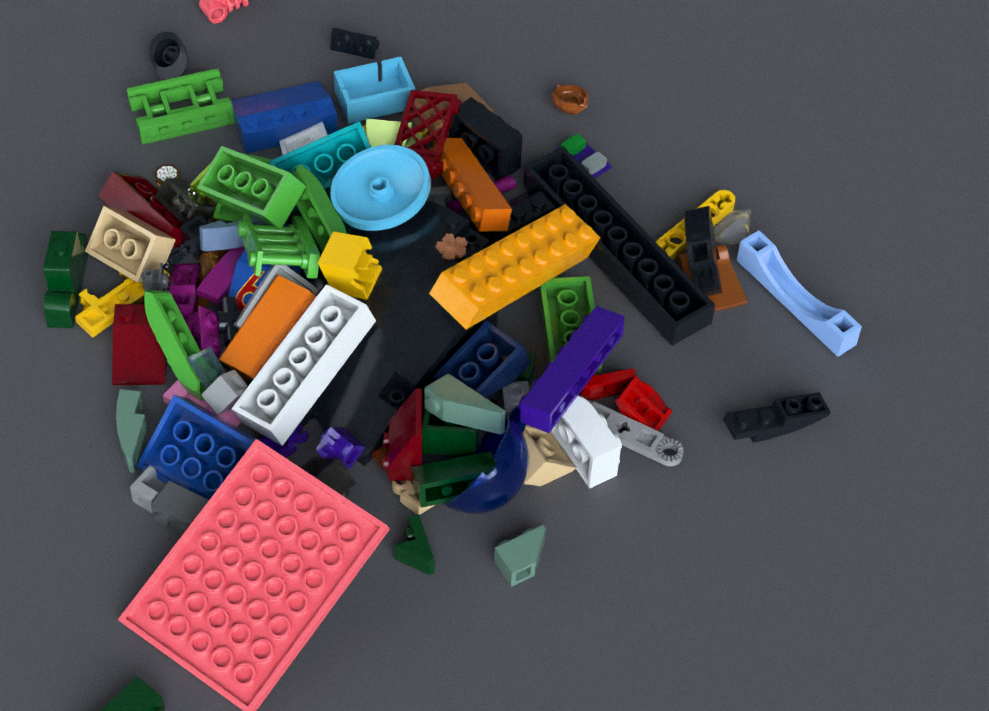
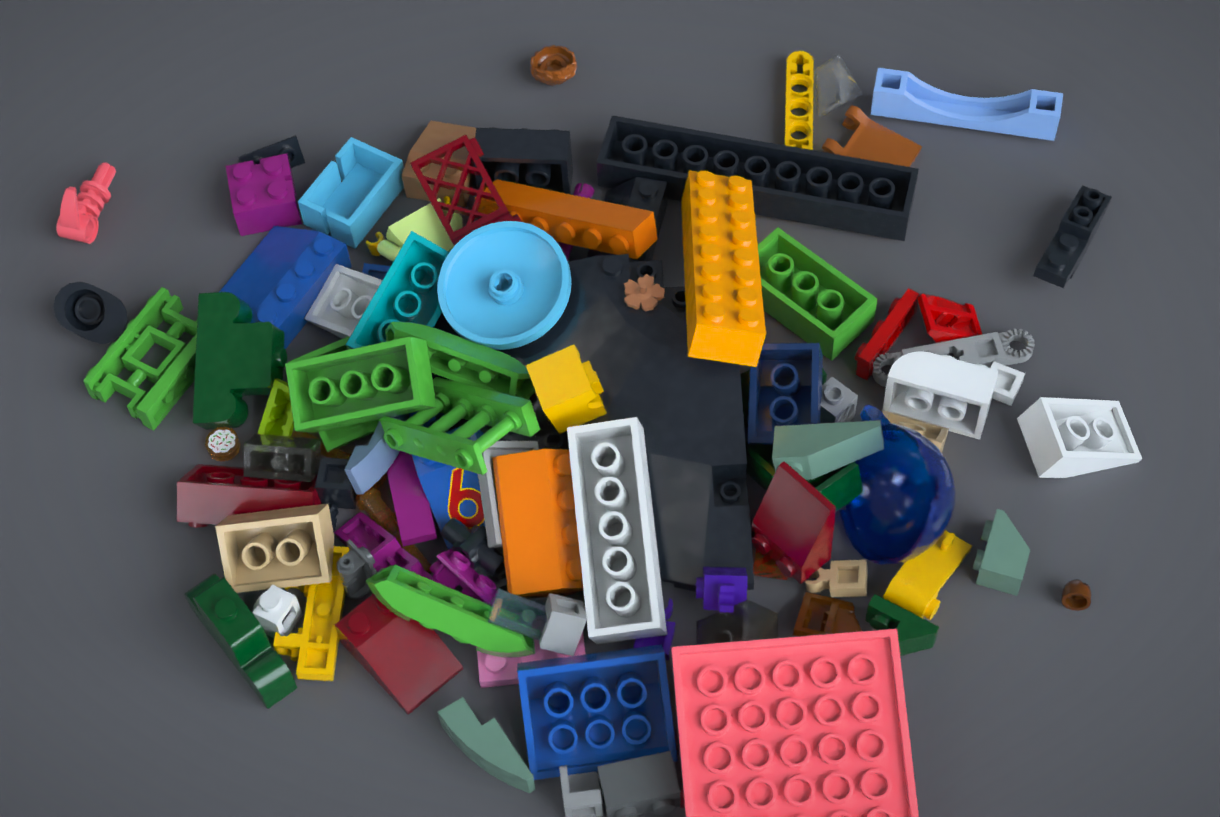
camera: 35 degrees left, 5 degrees up
(96, 273) = (273, 607): none -> white brick
(208, 128) = (232, 360): none -> dark green brick
(325, 54) = (263, 195): none -> magenta piece
(384, 507) = (825, 616): none -> reddish brown slope
(447, 479) = (875, 529): dark green brick -> none
(452, 530) = (921, 578): none -> yellow door
(542, 611) = (1076, 595): none -> reddish brown hinge
(571, 369) = (880, 331): dark purple brick -> none
(592, 161) = (605, 106): piece -> none
(635, 466) = (1007, 383): none -> white plate
(646, 528) = (1077, 436): none -> white slope
(702, 250) = (842, 122): black slope -> none

